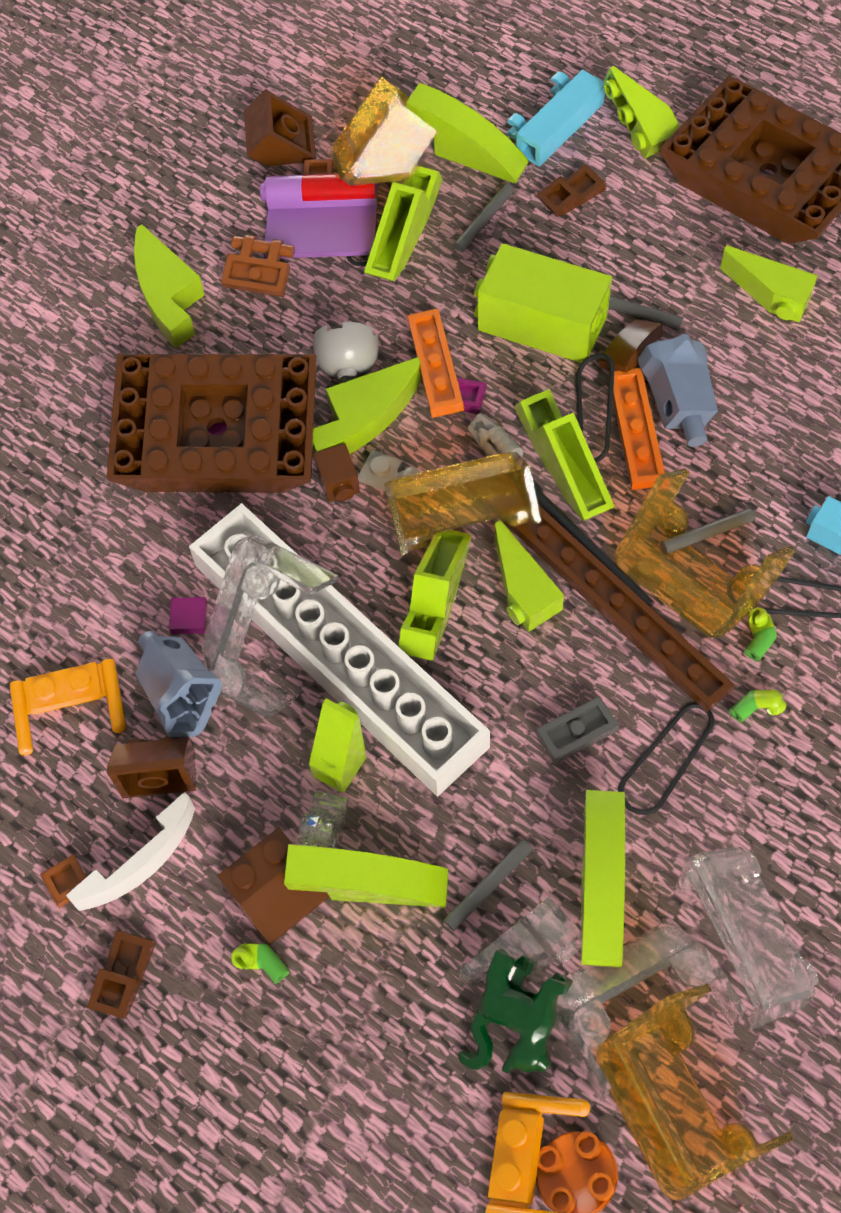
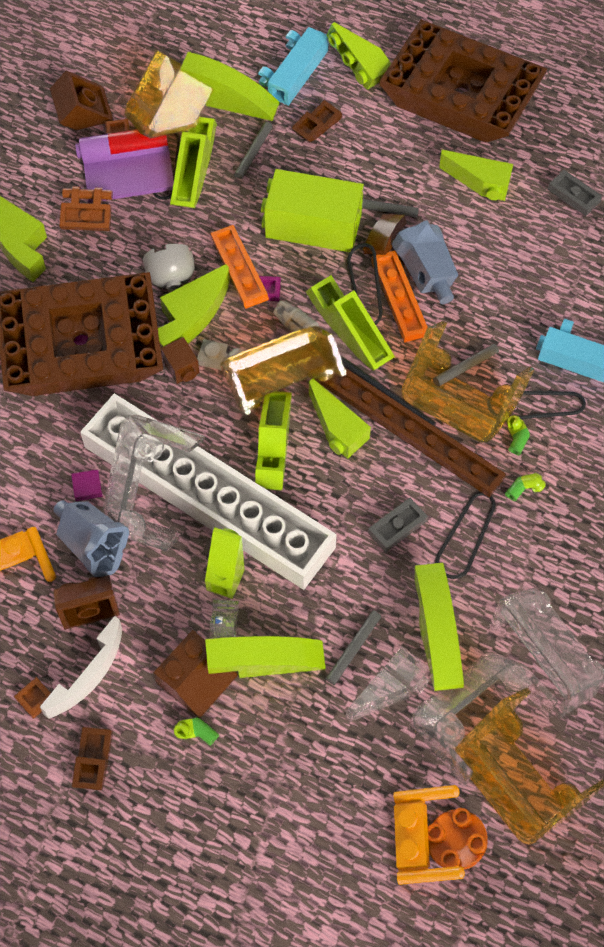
camera: 15 degrees left, 0 degrees up
(517, 1008) = (395, 730): dark green animal -> none

